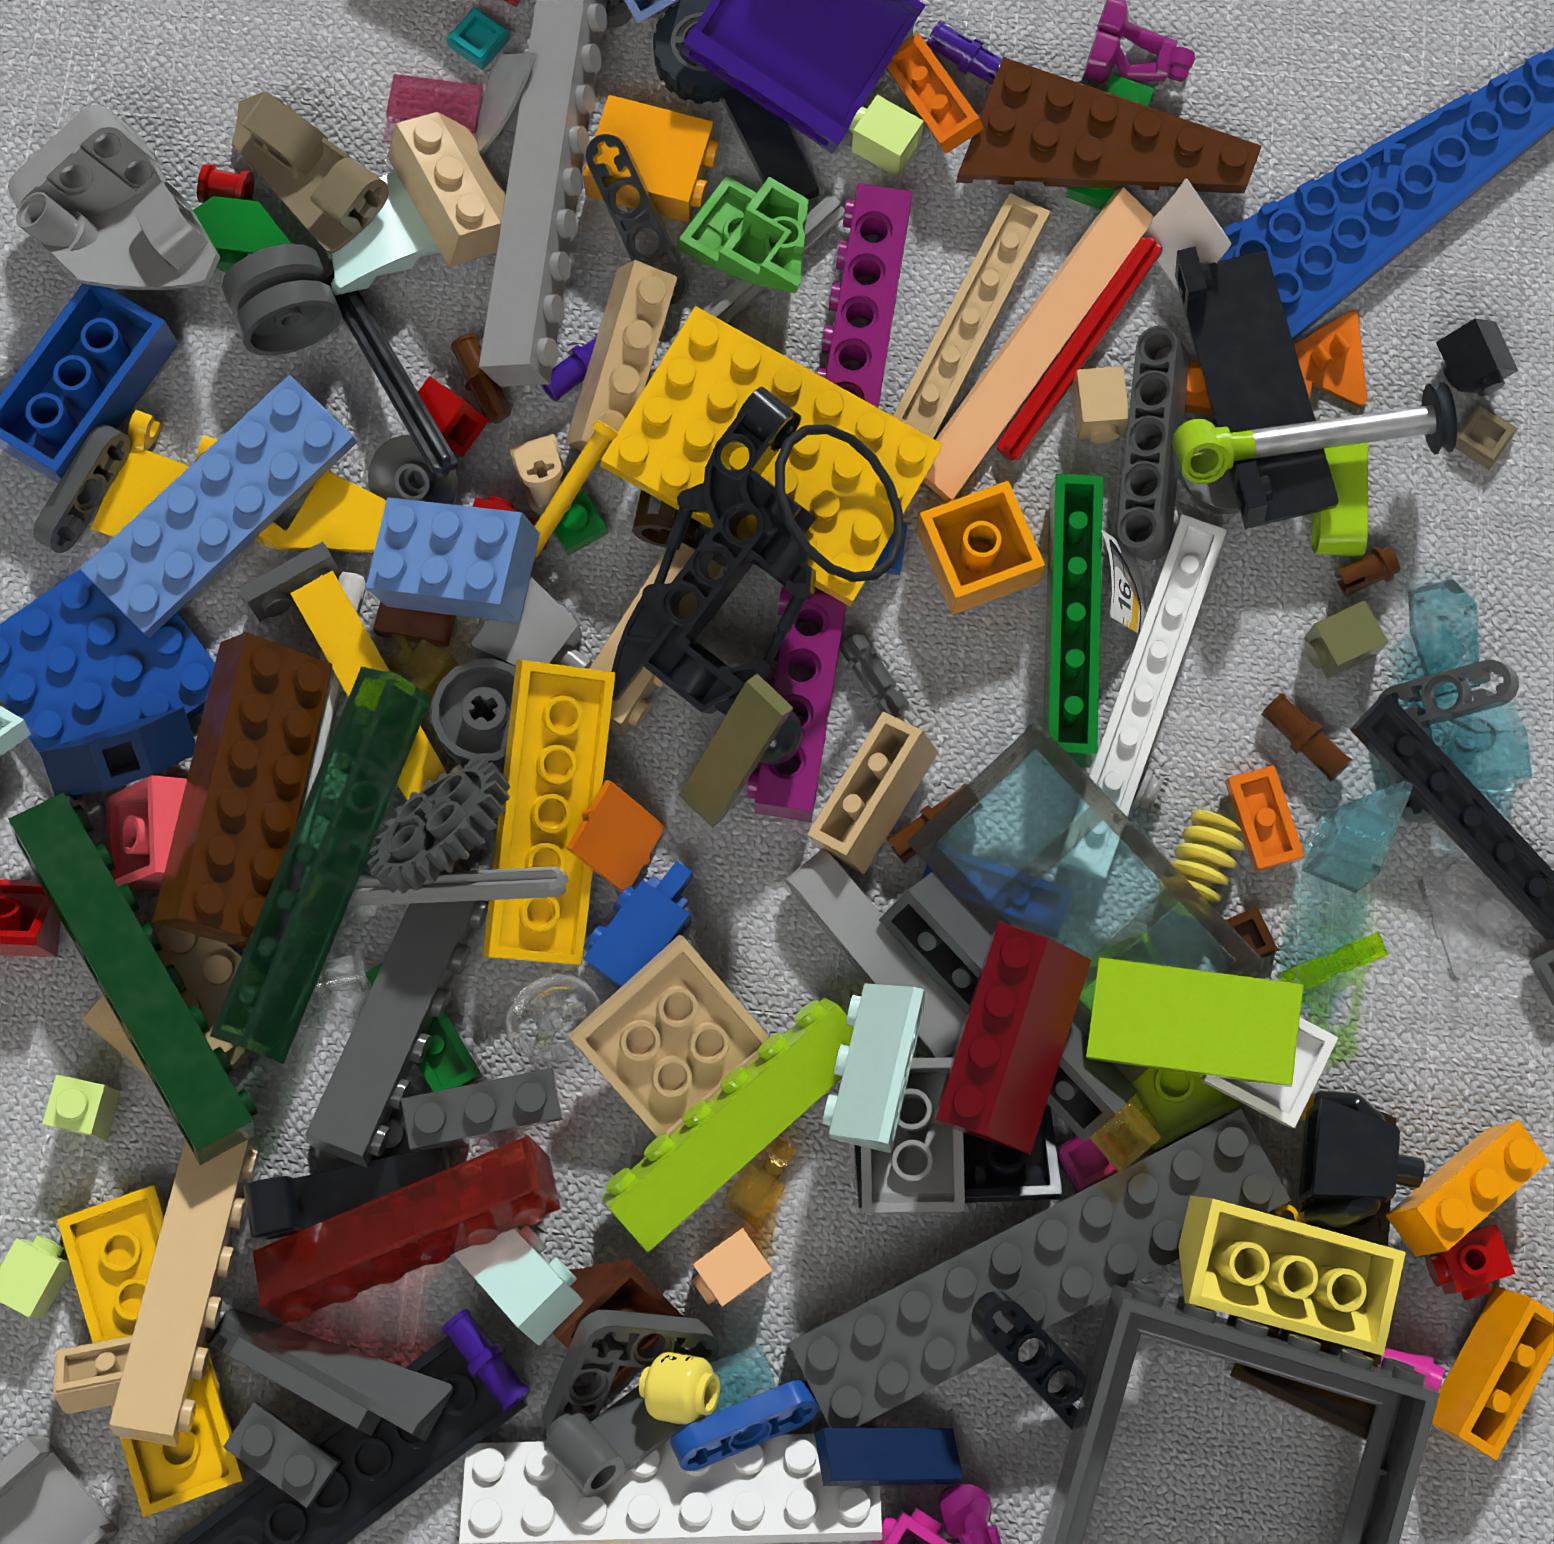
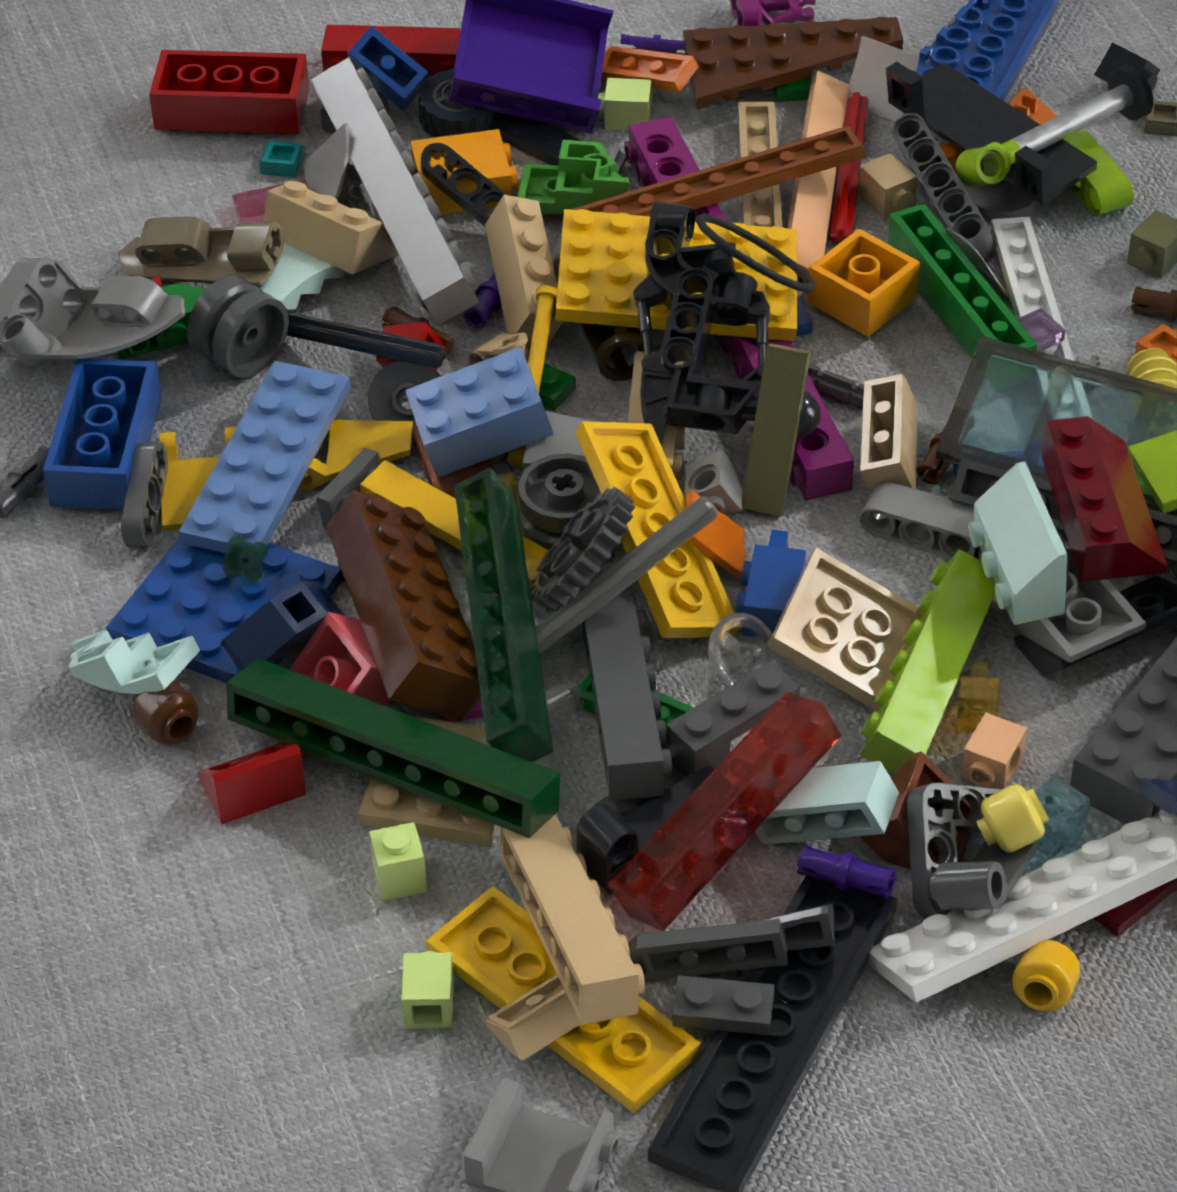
camera: 25 degrees left, 30 degrees down
(123, 642) = (233, 556): none -> plate
(653, 768) = (716, 480): none -> light grey brick
(744, 1425) = (1064, 823): blue beam -> none
(907, 329) = (741, 175): none -> dark orange tile
(1123, 716) = (1042, 329): none -> clear purple tile
(1368, 570) = (1146, 202): reddish brown pin -> none

